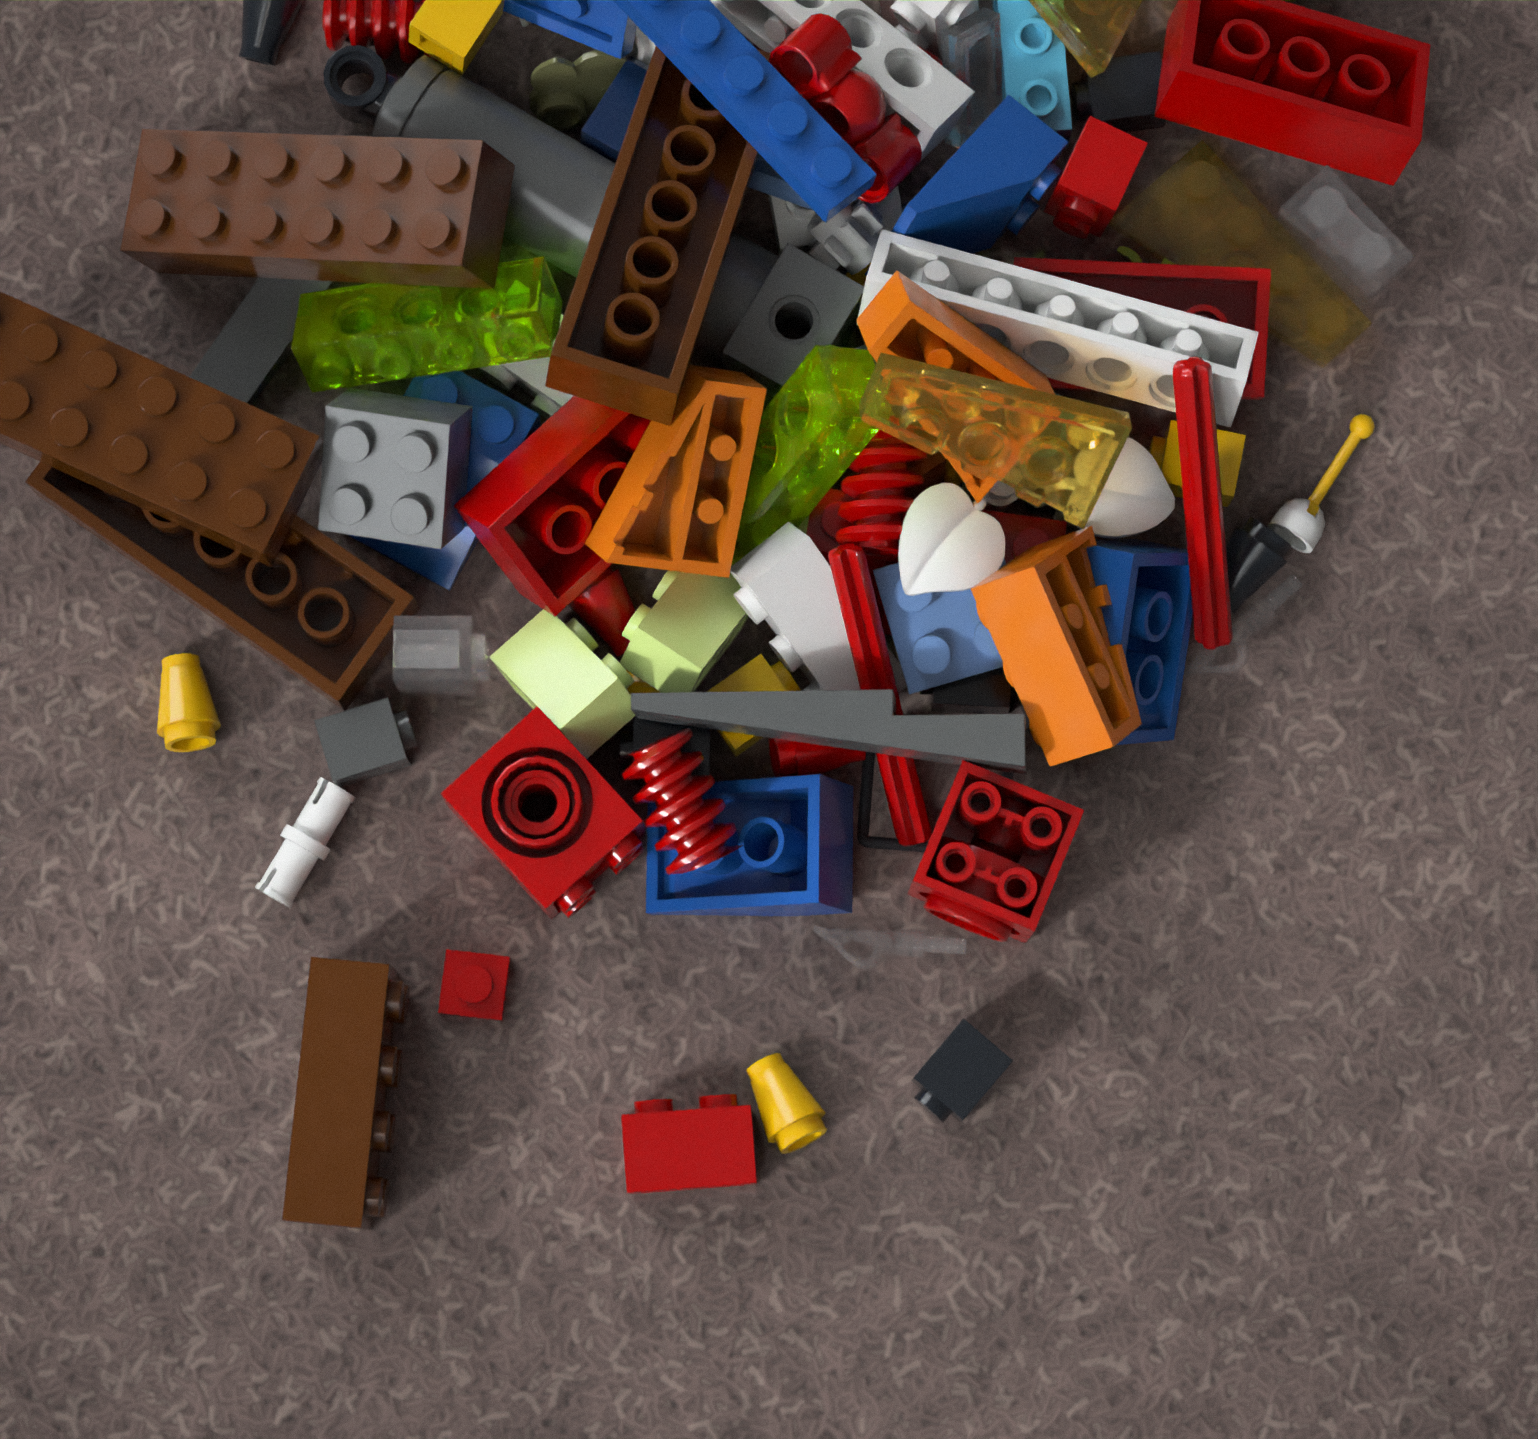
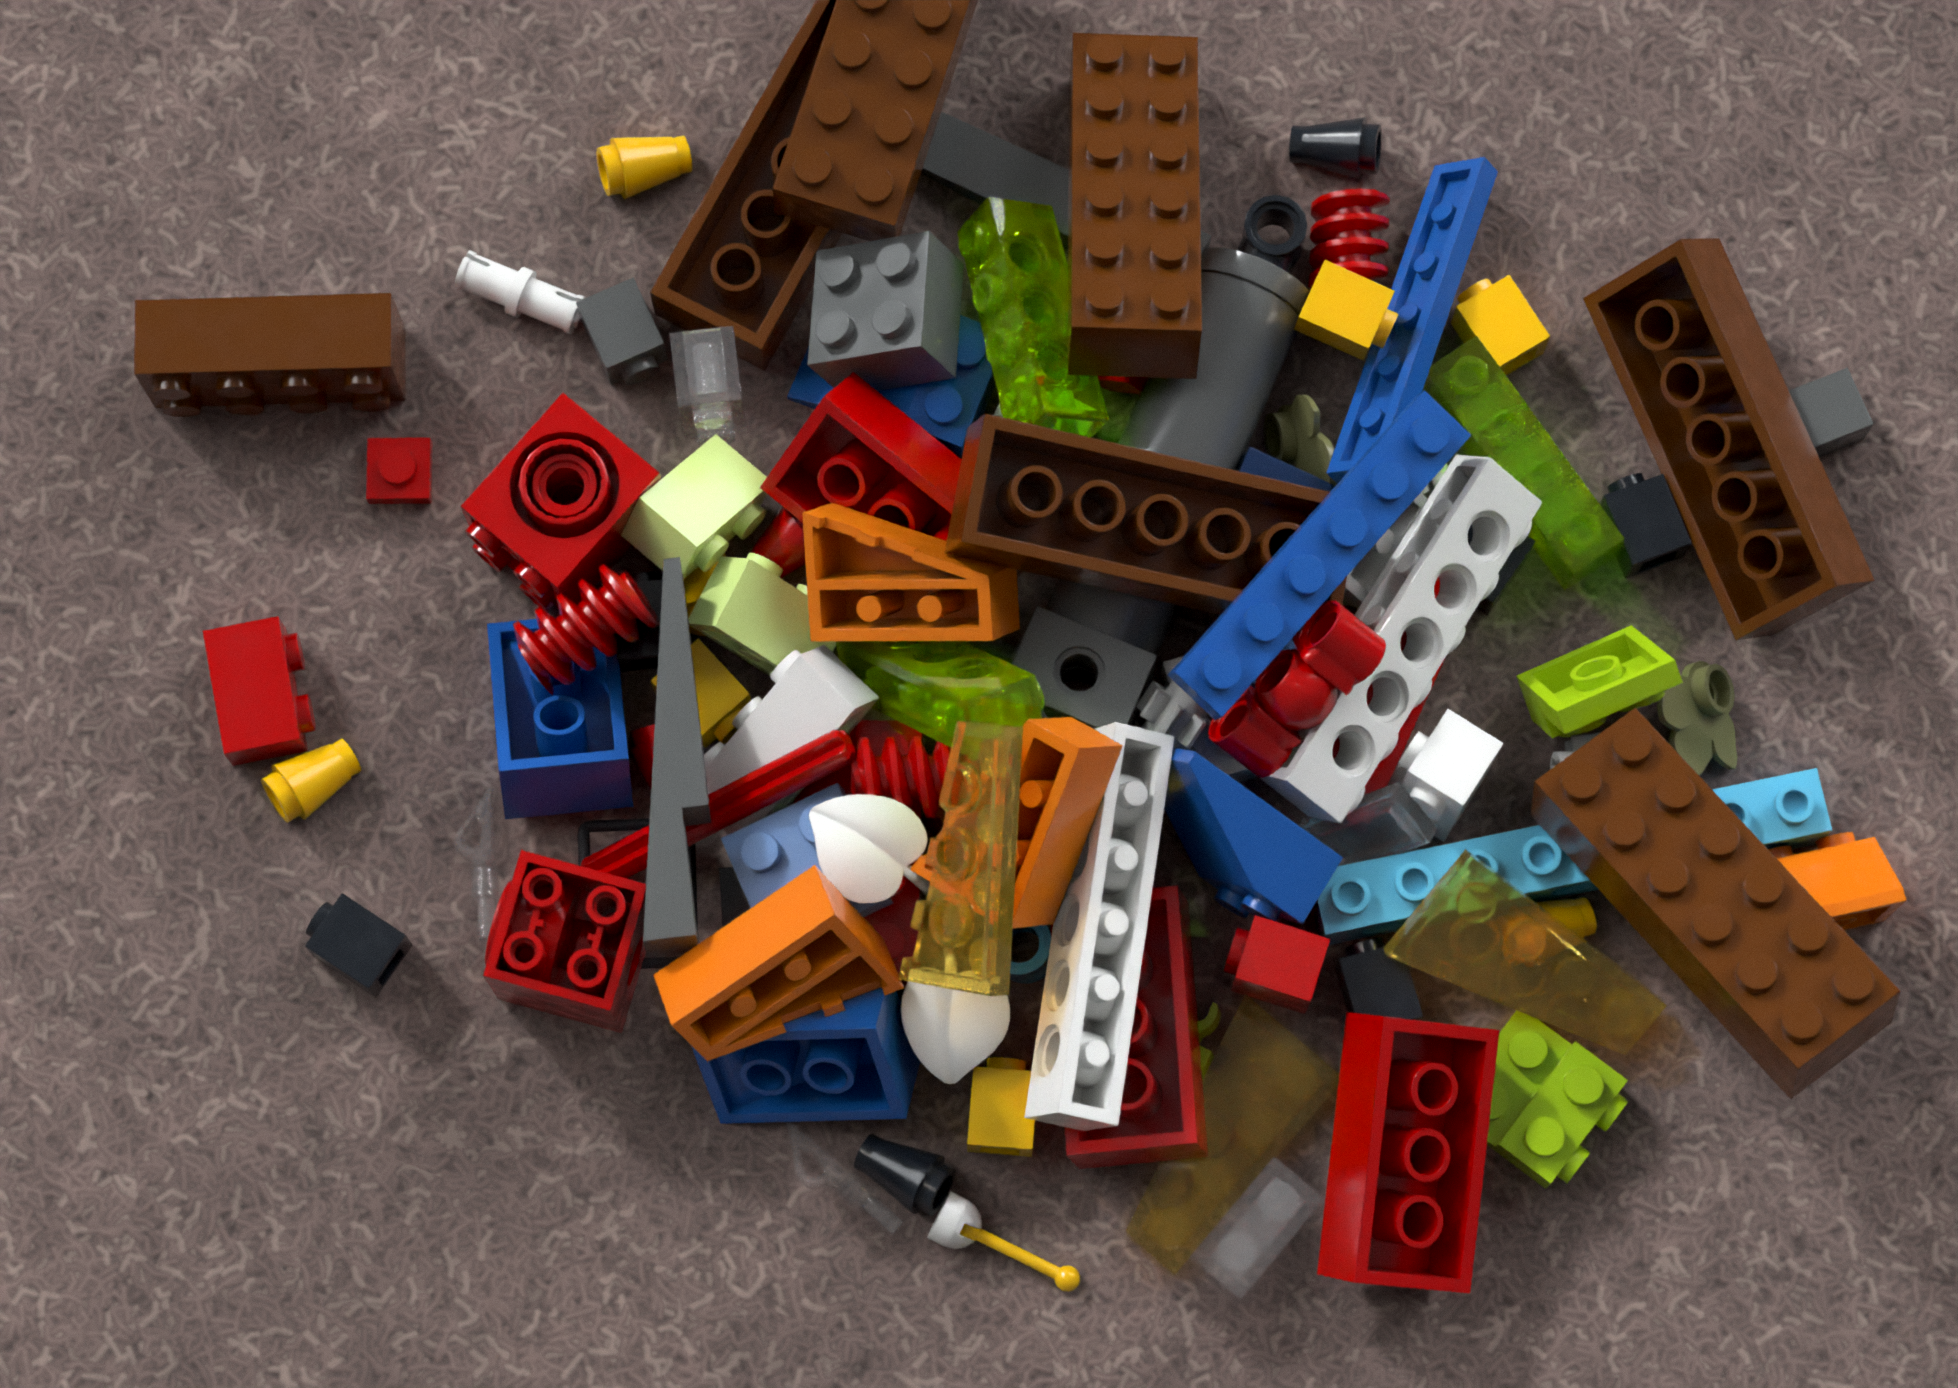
camera: 85 degrees right, 5 degrees down
(1202, 501) = (944, 1099): red axle -> none

